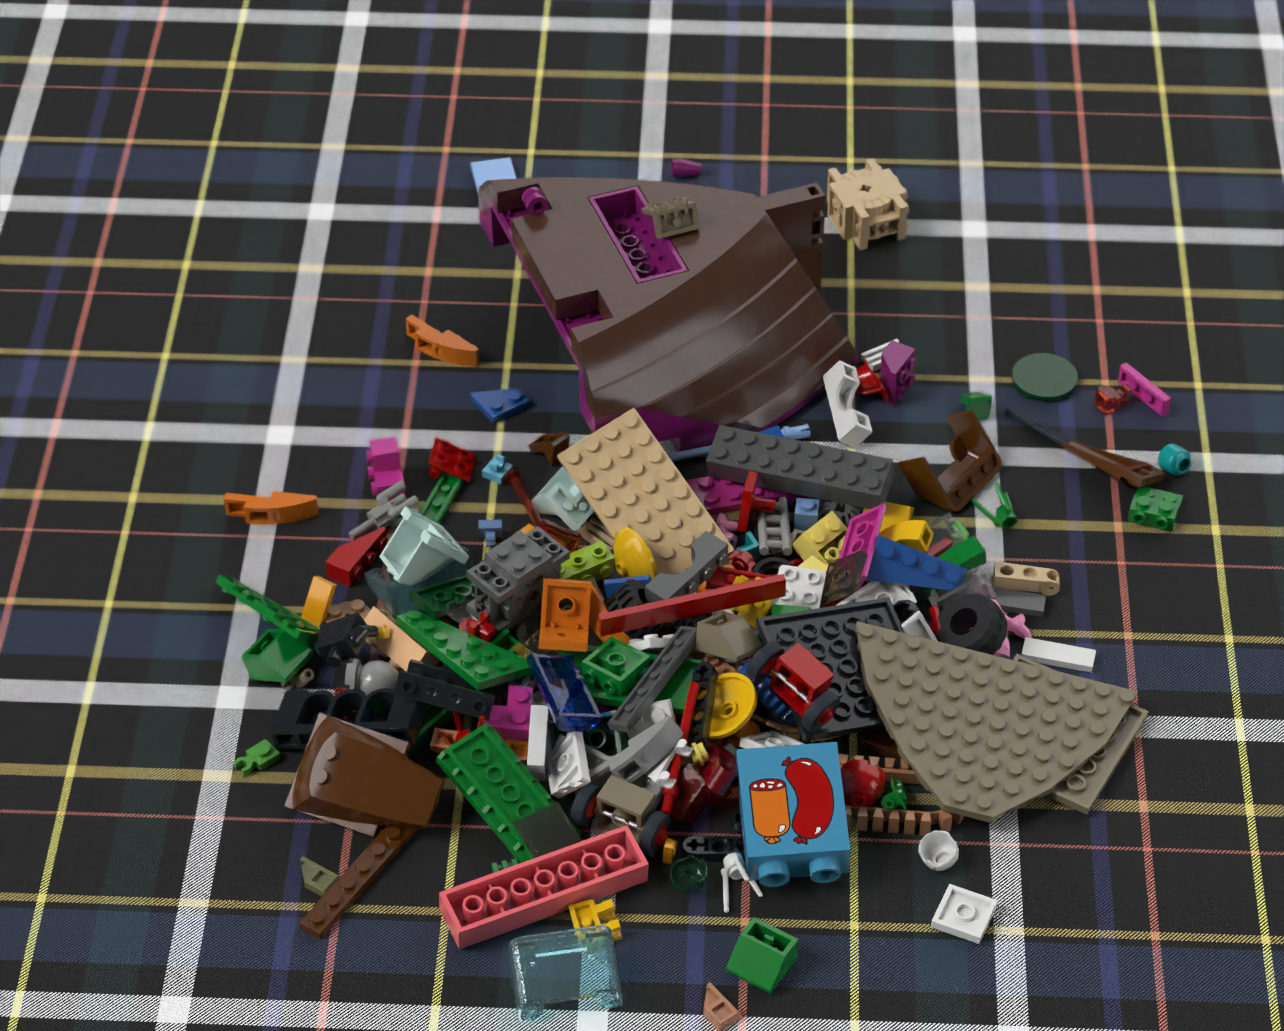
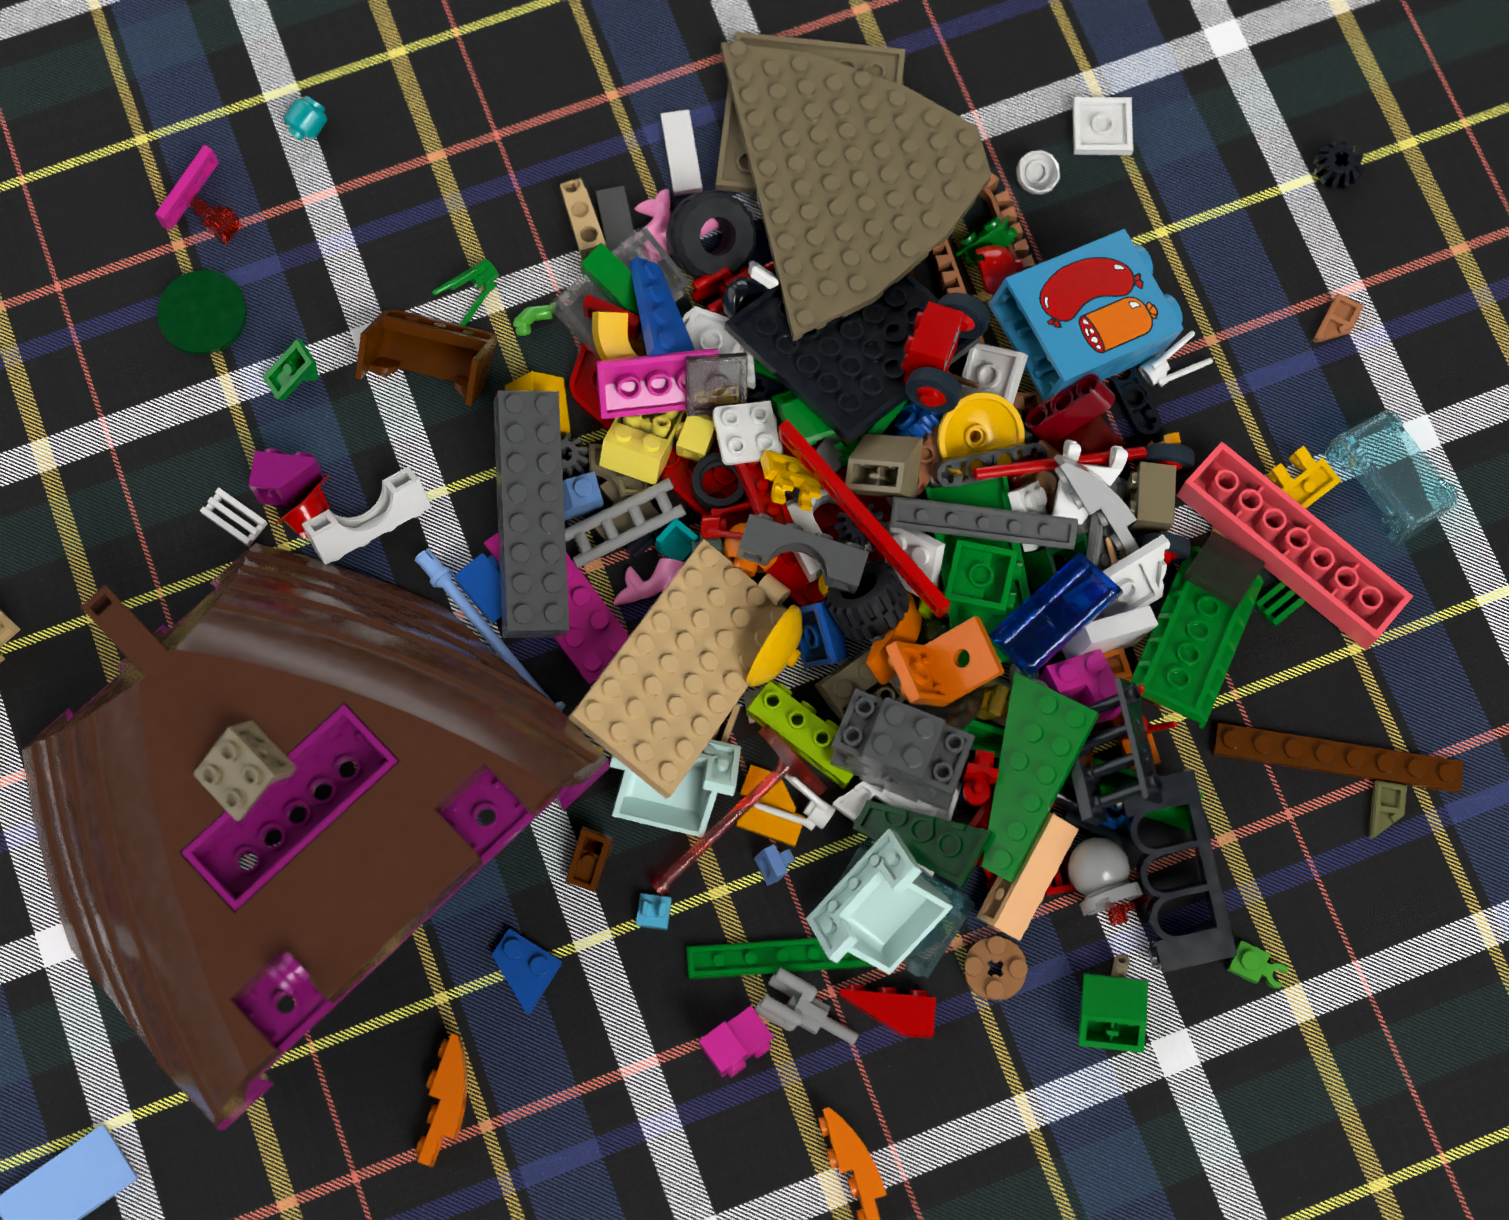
camera: 115 degrees left, 30 degrees up
(270, 610) = (1049, 1034): green wing -> none
(318, 601) = (1001, 1010): light orange tile -> none
(345, 637) = (1074, 928): black torso -> none
(362, 779) = (1262, 806): reddish brown wedge -> none
(451, 460) = (670, 973): red hinge -> none
(689, 874) = (1194, 407): clear green hair -> none
(699, 754) = (1057, 438): light yellow plate -> none
(752, 502) = (607, 557): red tile -> none
(762, 955) = (1263, 292): green slope -> none
(1118, 467) = (341, 176): reddish brown plate -> none
(1155, 508) = (394, 120): green plate -> none

